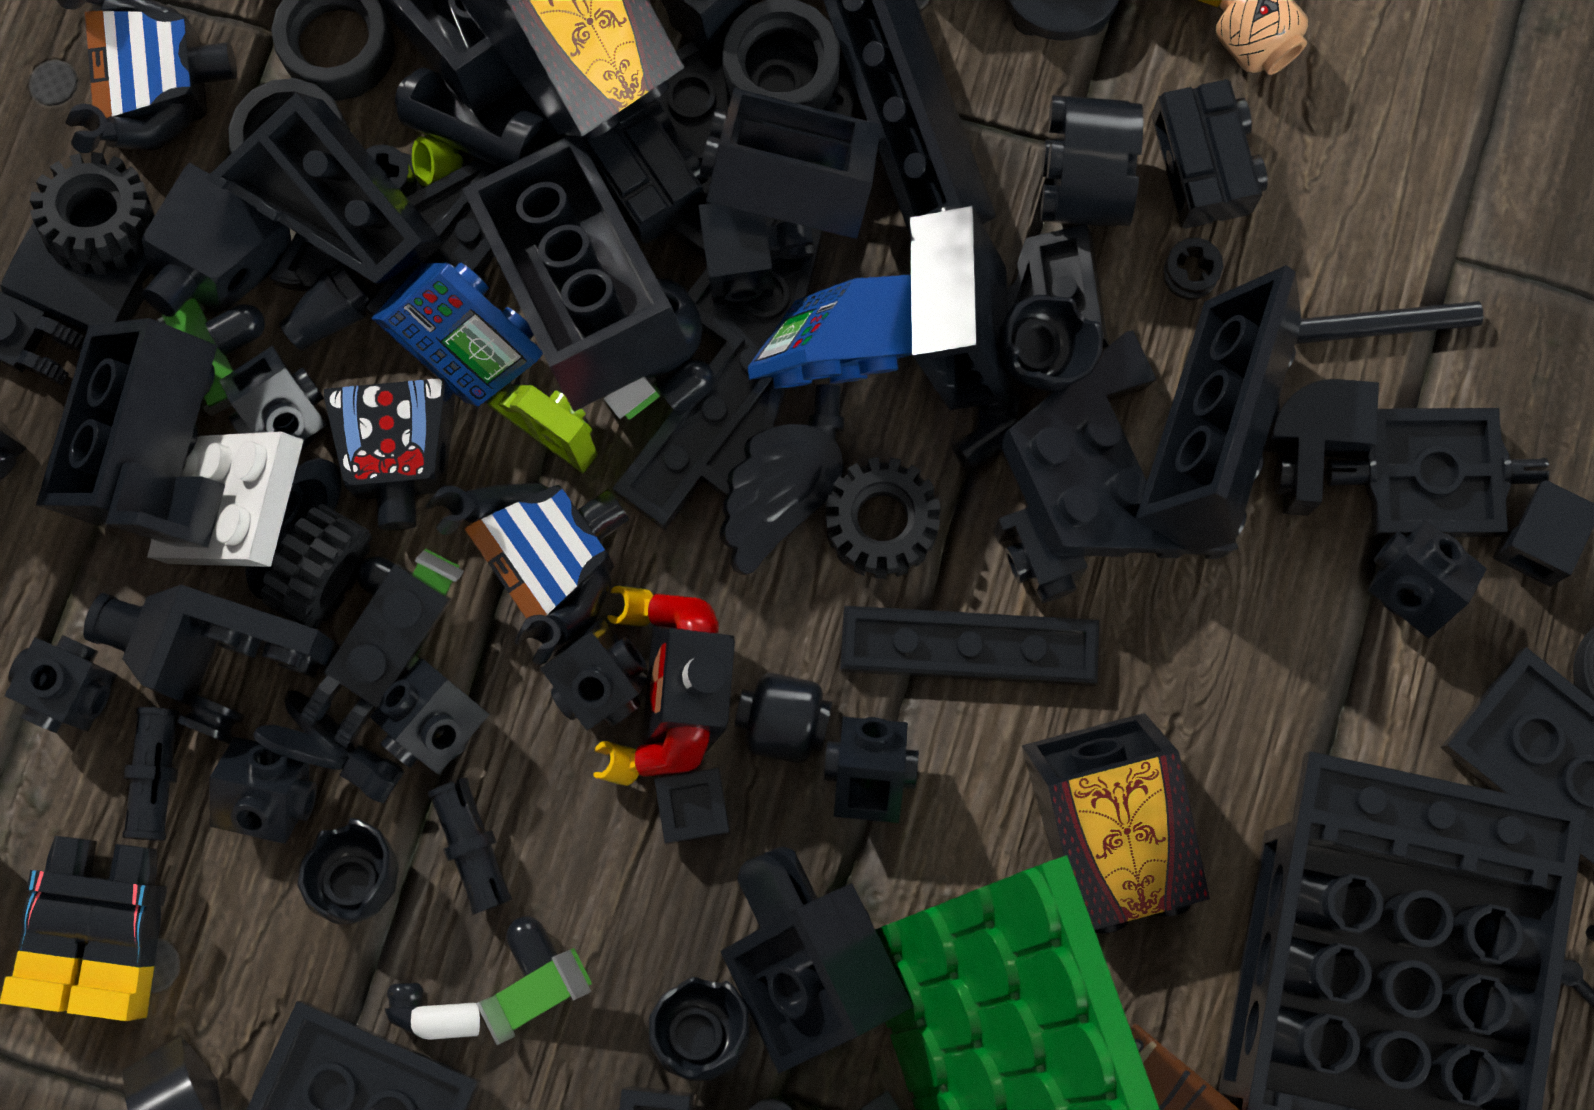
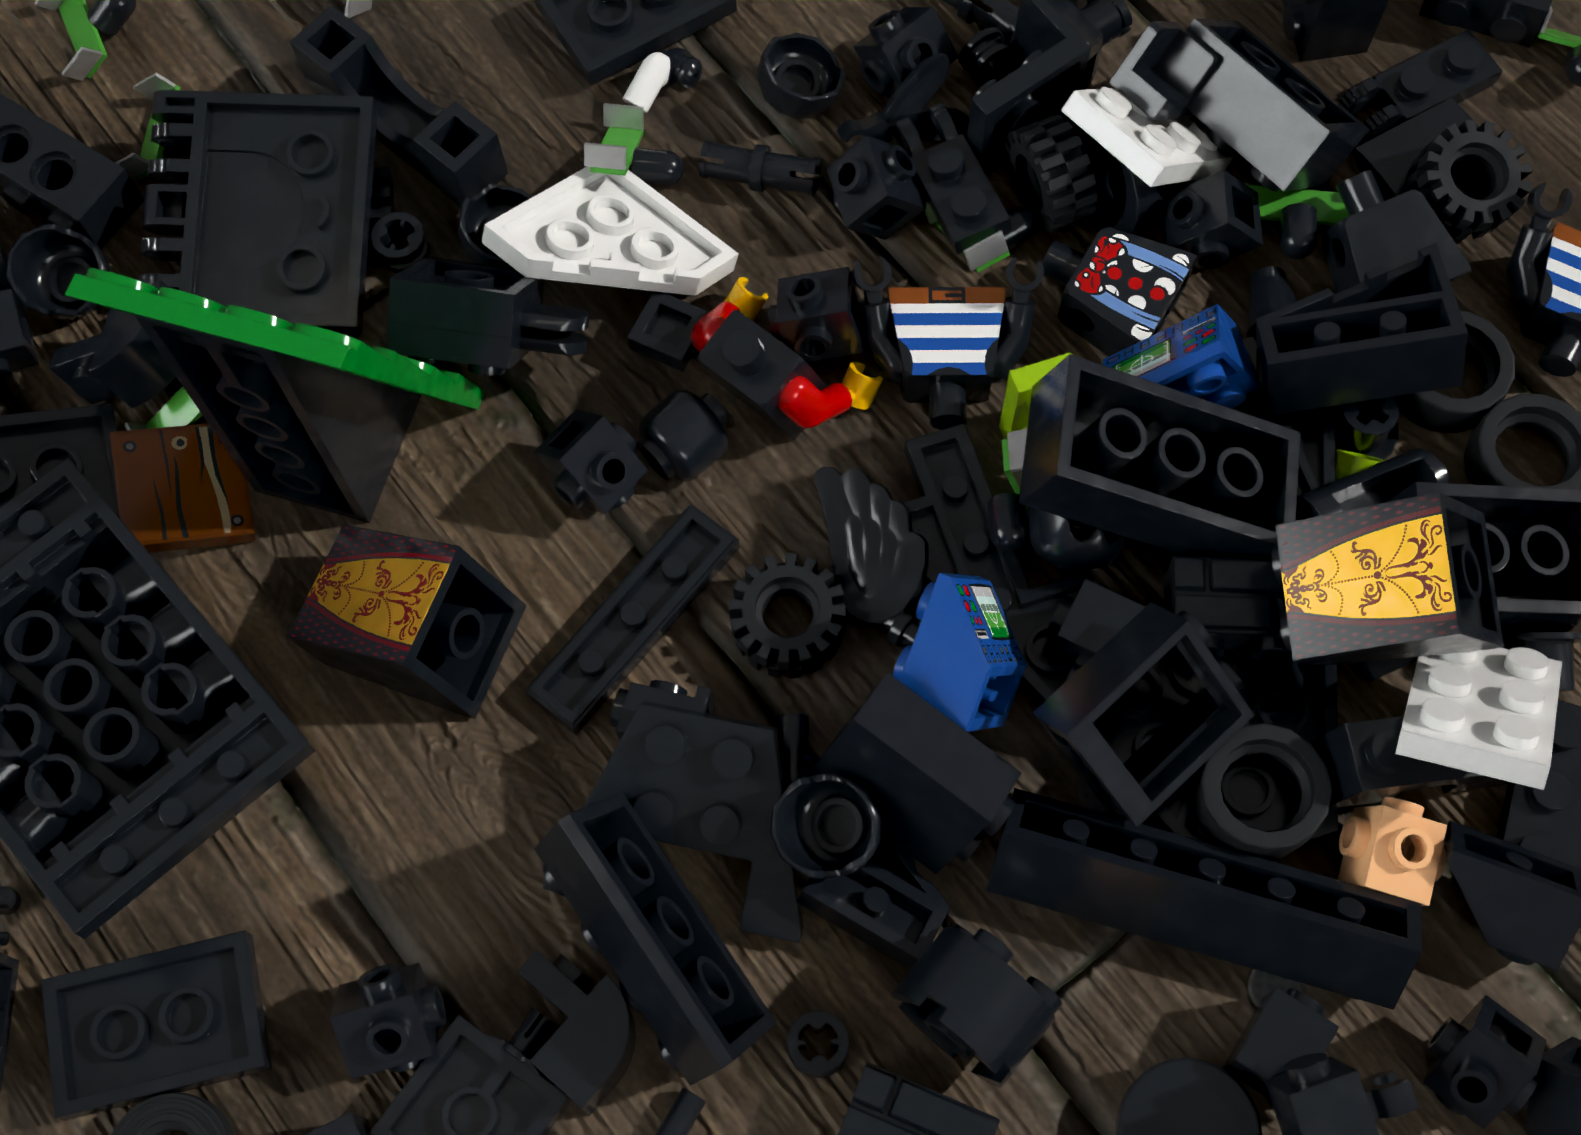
camera: 125 degrees right, 10 degrees down
(645, 917) = (609, 235): none -> white plate

